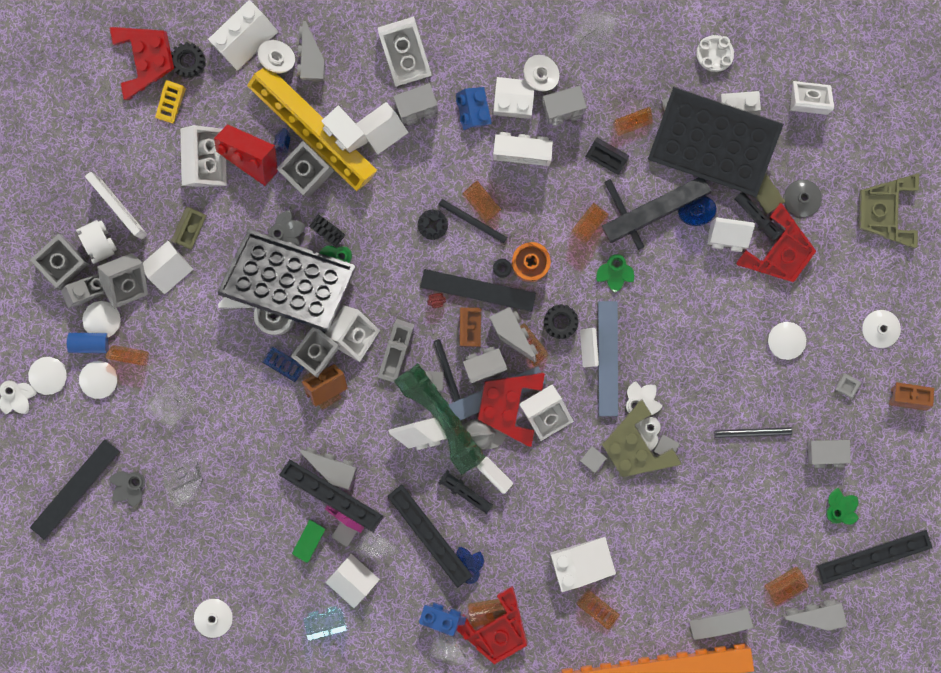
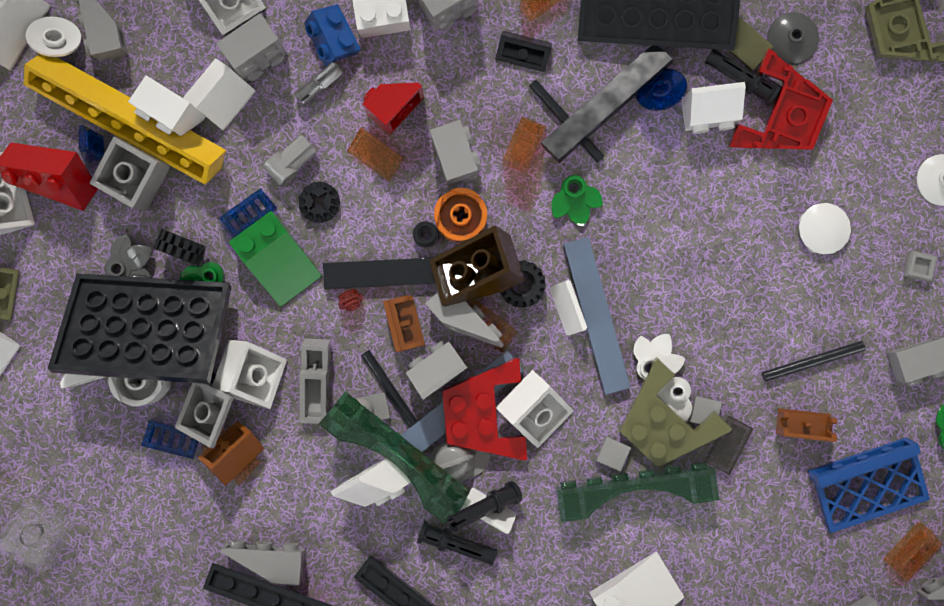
camera: 10 degrees left, 0 degrees up
(365, 229) = (233, 213): none -> clear blue slope
(392, 257) = (275, 258): none -> green slope
(415, 192) = (284, 164): none -> light grey piece
(455, 140) = (318, 83): none -> flat silver axle
(473, 221) = (370, 183): black bar -> none
(499, 469) = (494, 502): none -> black pin
(503, 170) = (392, 103): none -> red slope
(522, 149) = (427, 68): white slope -> none
(532, 301) = (477, 267): none -> dark brown slope
(538, 217) = (454, 153): none -> light grey brick
(561, 485) = (581, 500): none -> clear green arch
(676, 476) = (729, 446): none -> clear smoke tile
(734, 475) = (805, 425): none -> dark orange hinge
(771, 514) = (869, 462): none -> blue fence

